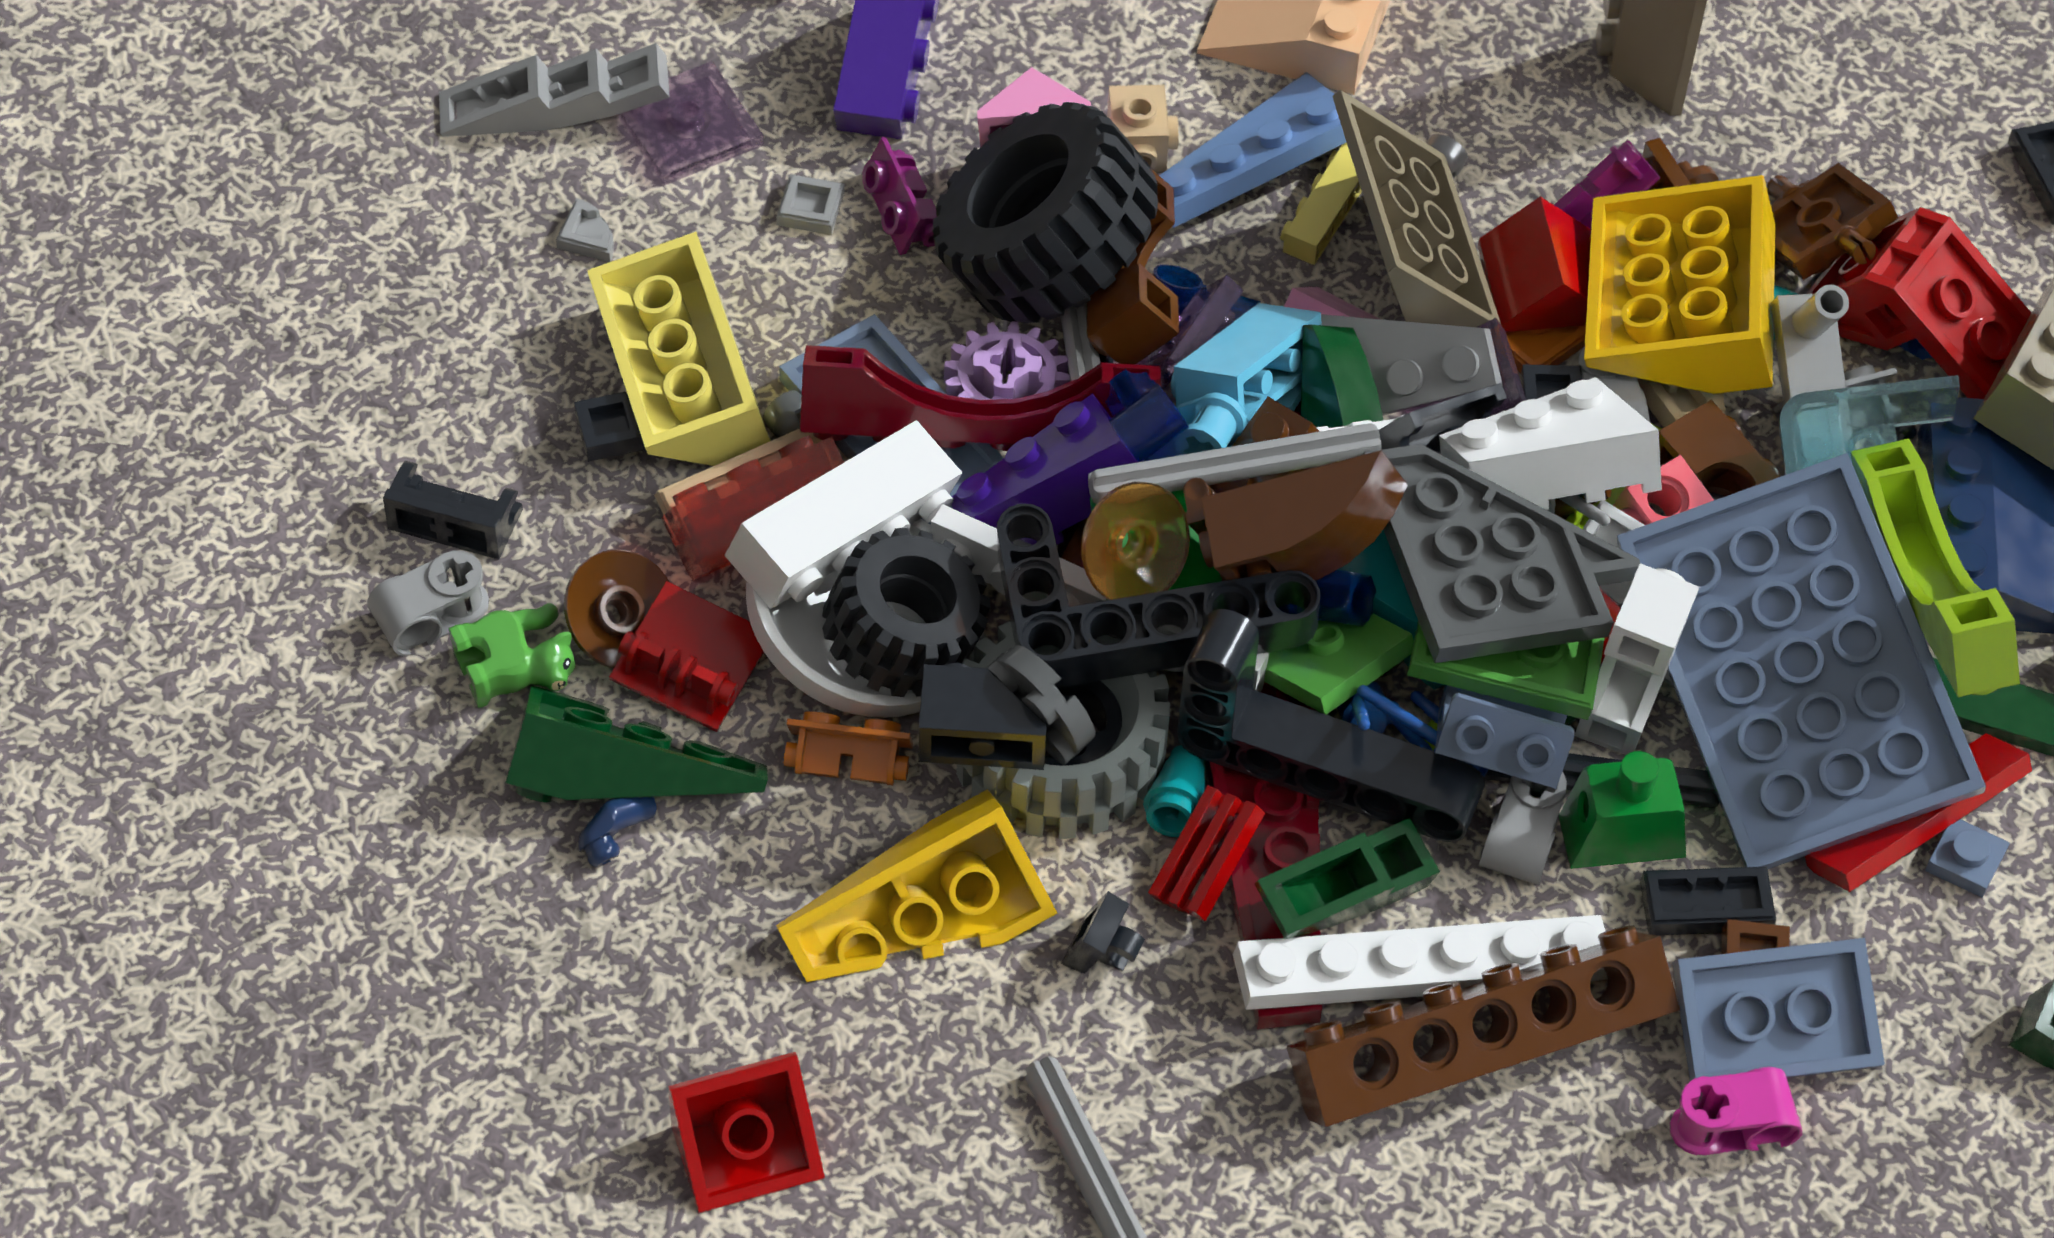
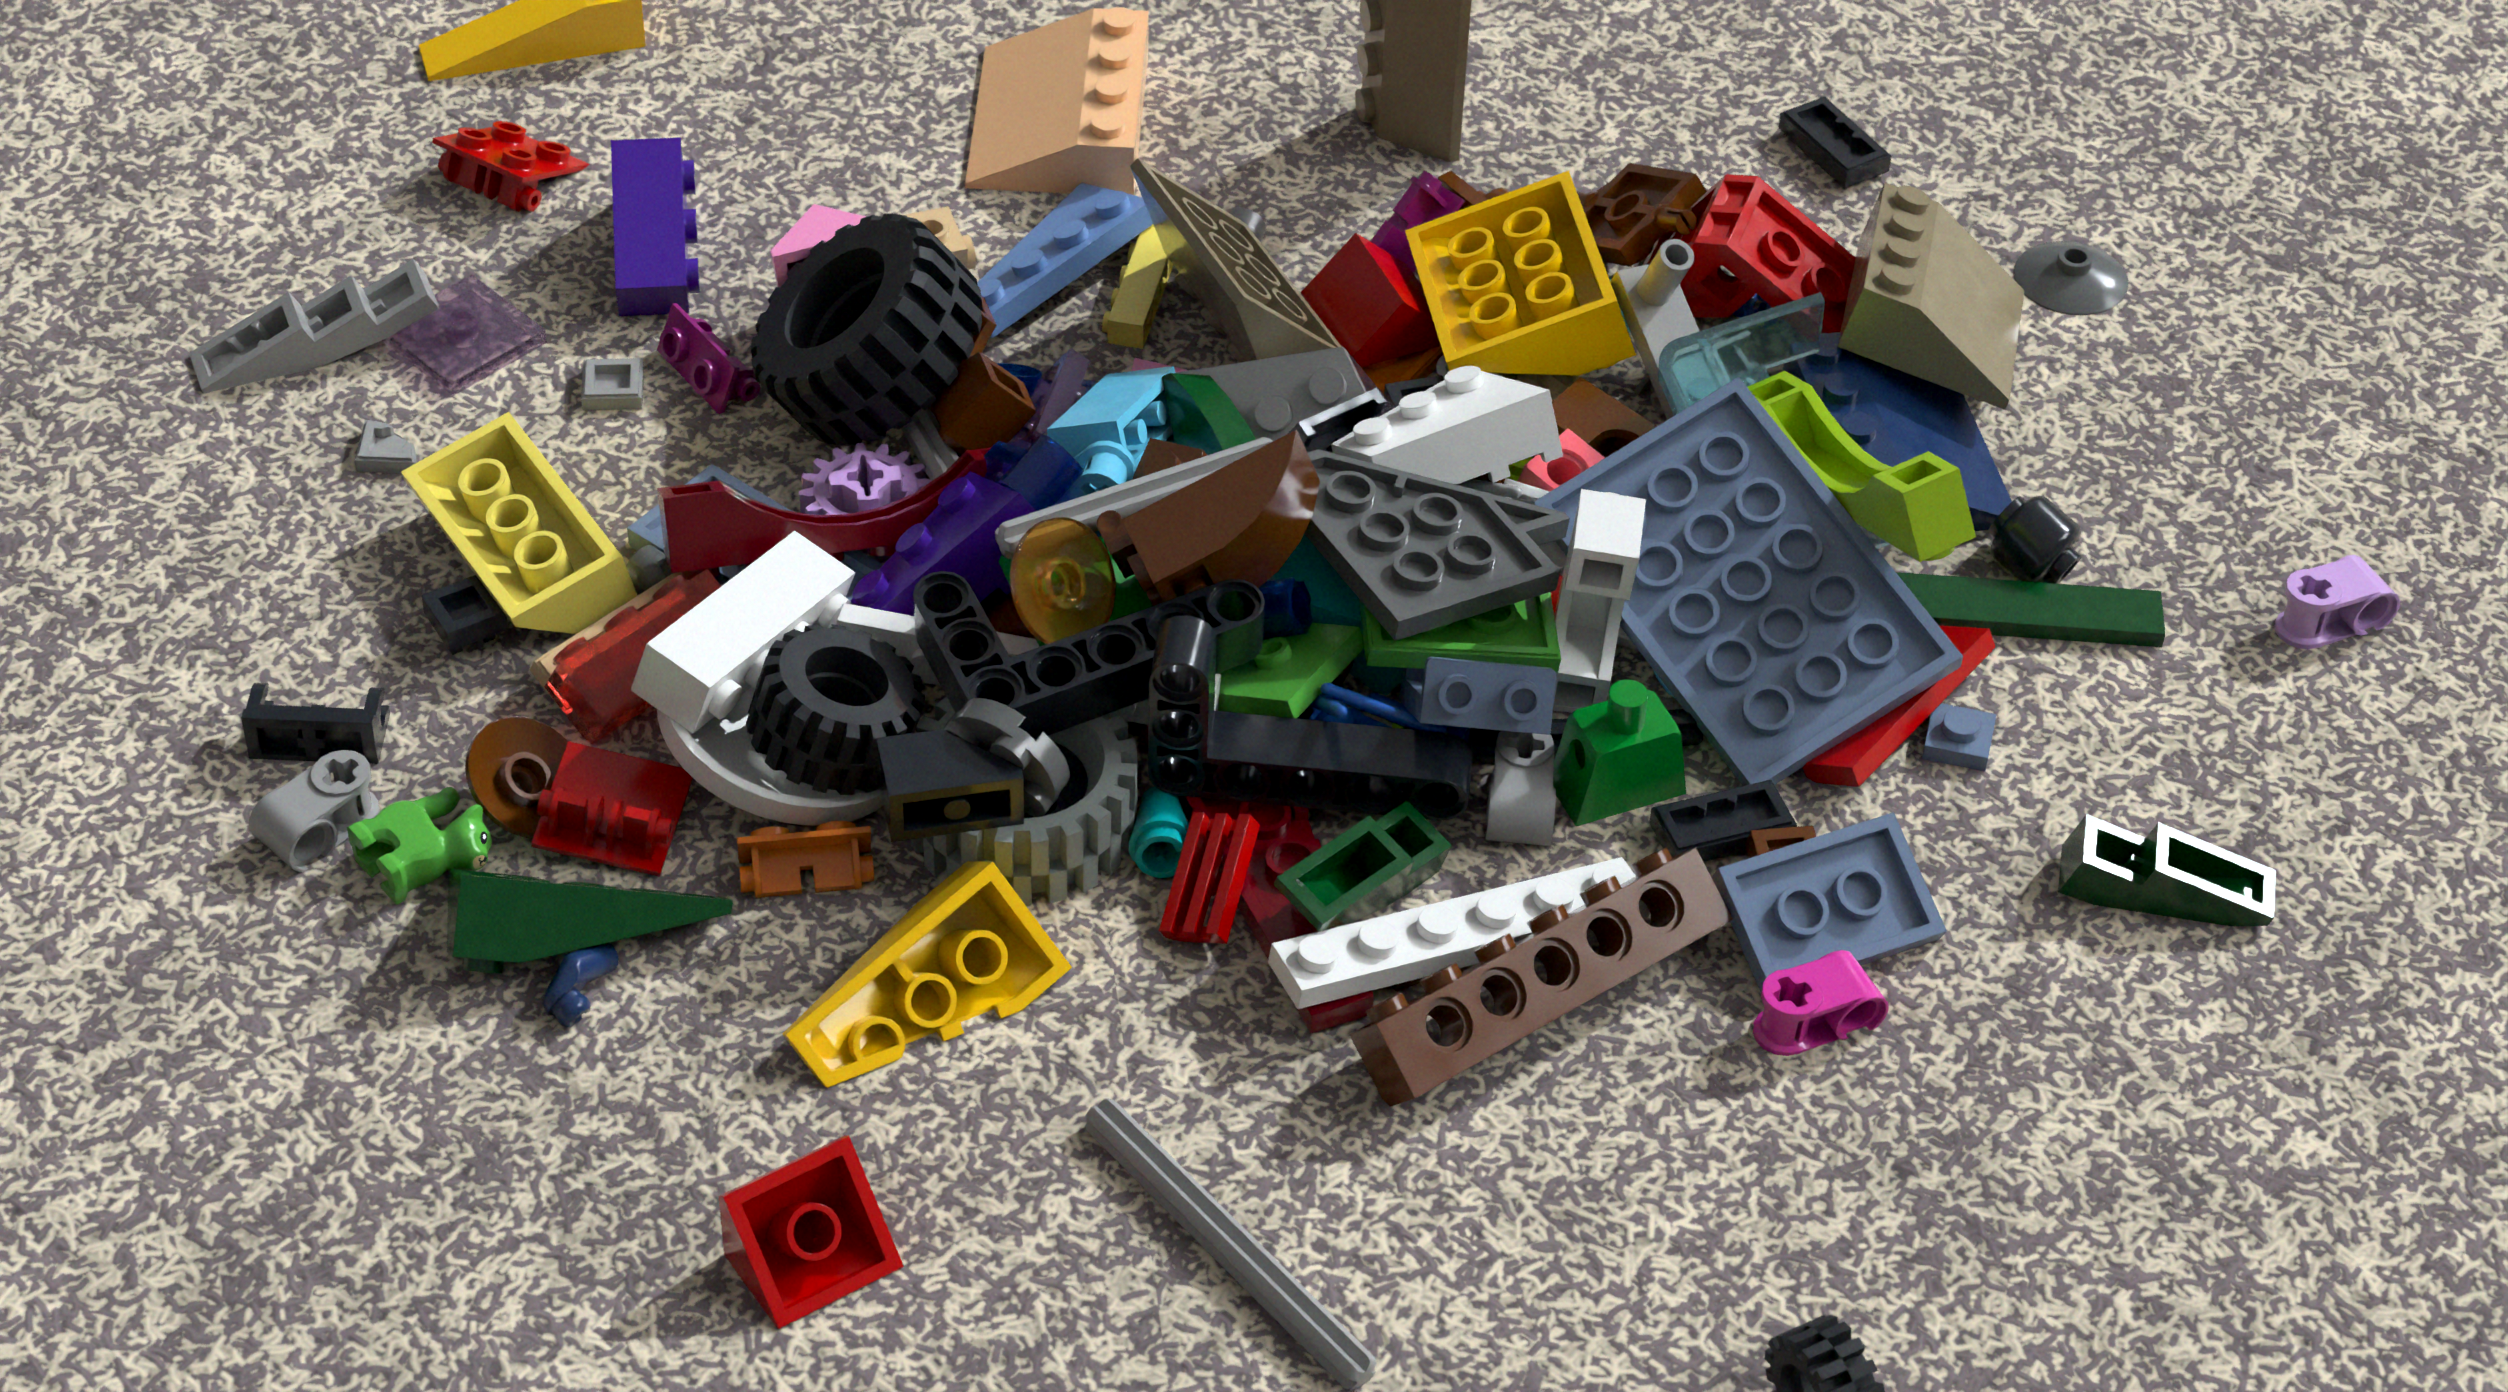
camera: 15 degrees left, 10 degrees down
(1102, 937) = (1128, 978): black tile -> none

